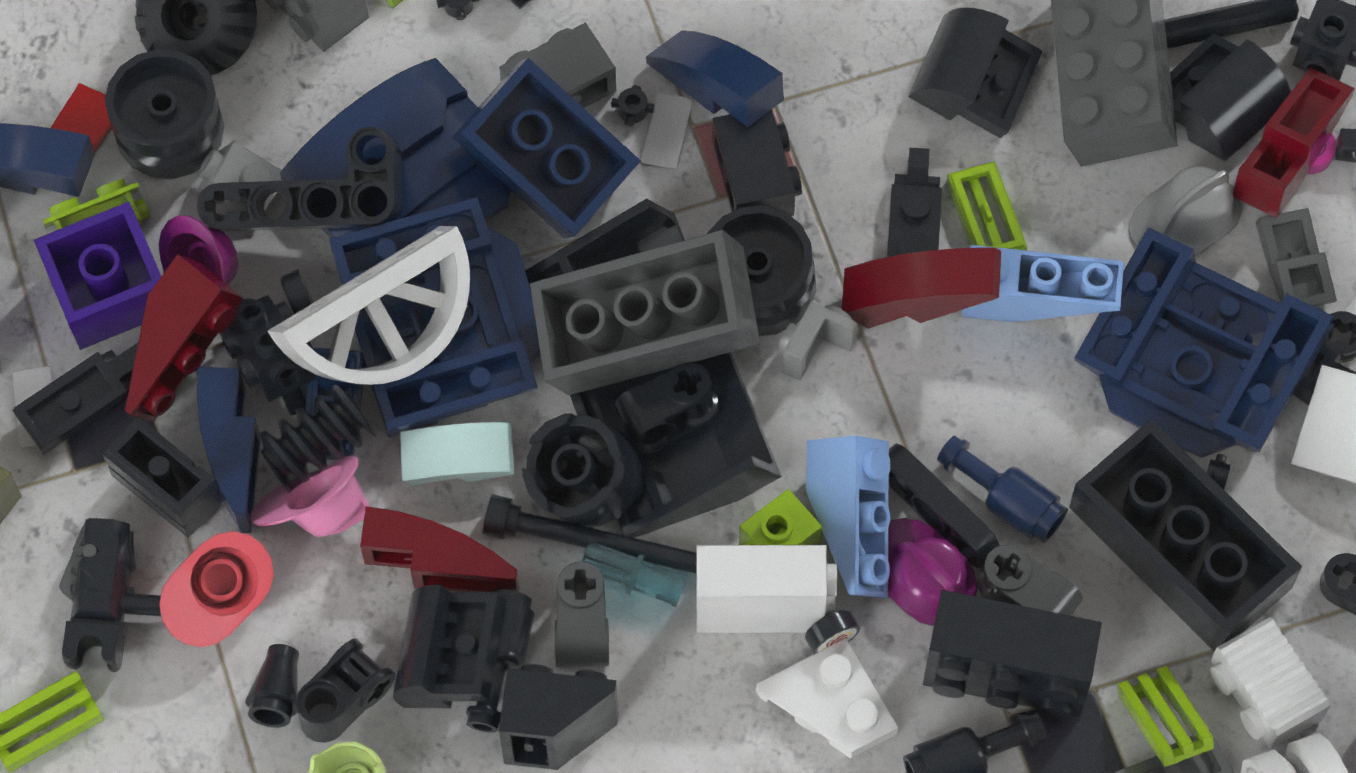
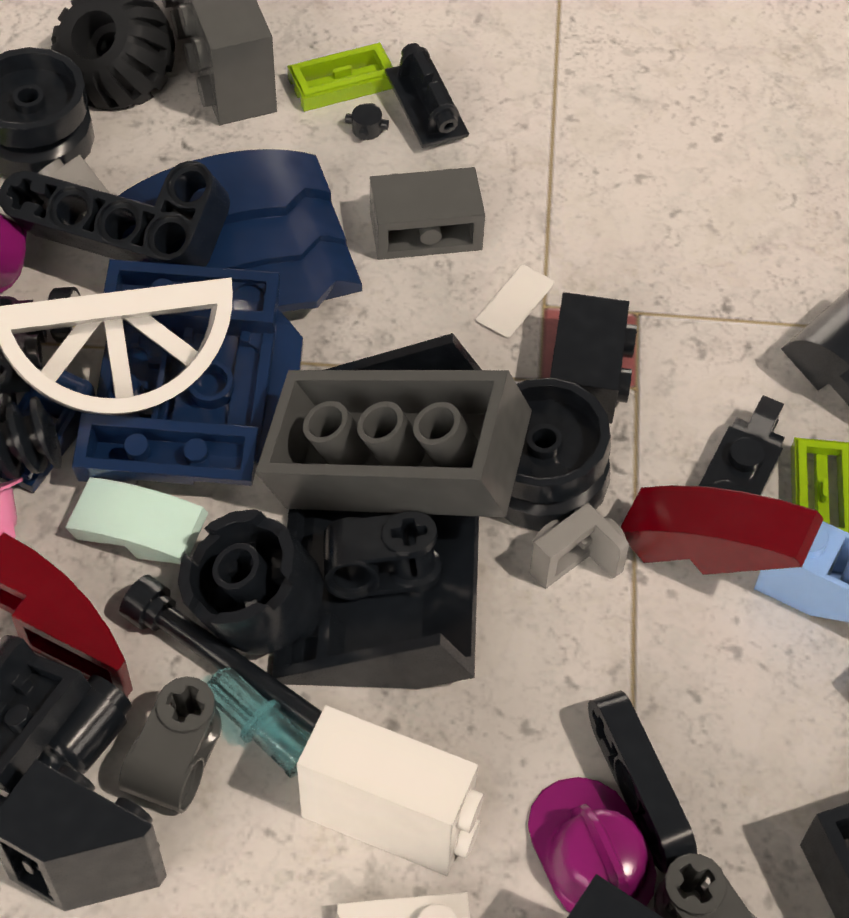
camera: 20 degrees right, 10 degrees down
(546, 148) = (374, 255): dark blue brick -> none
(632, 105) = (491, 265): black piece -> none
(719, 75) = (592, 260): dark blue slope -> none
(781, 523) = (451, 726): lime brick -> none
(831, 630) = (454, 875): black tile -> none
(850, 499) = (537, 744): light blue slope -> none
(1011, 494) = (735, 800): dark blue piece -> none

